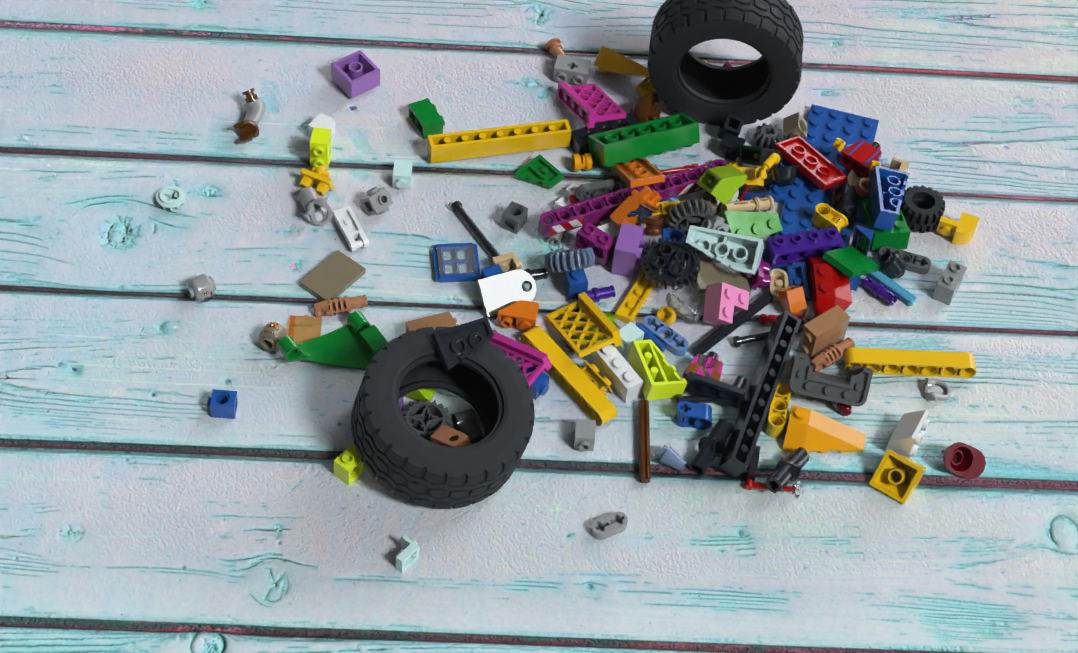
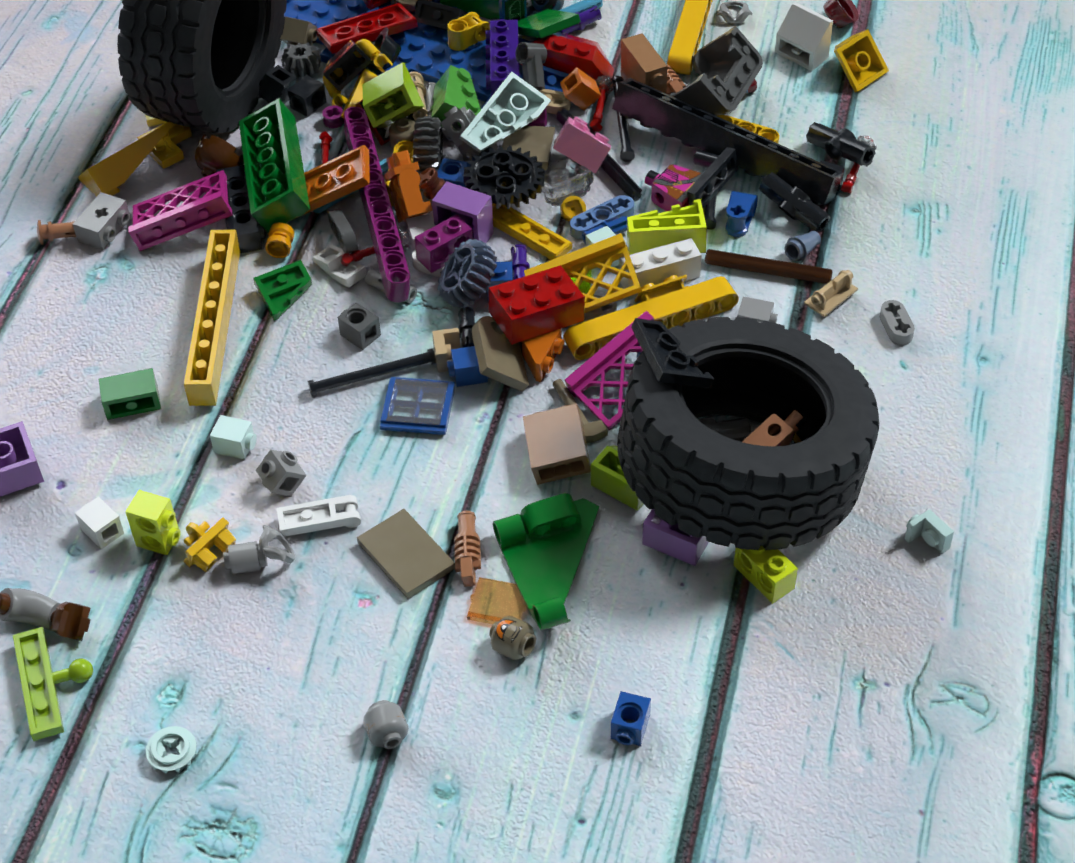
camera: 70 degrees left, 0 degrees up
(205, 131) = (39, 682): none -> lime plate
(544, 297) = (536, 304): none -> red brick
(624, 481) = (832, 294): none -> tan hinge
(798, 257) = (532, 58): none -> dark grey piece
(820, 433) = (785, 112): light orange wedge -> none

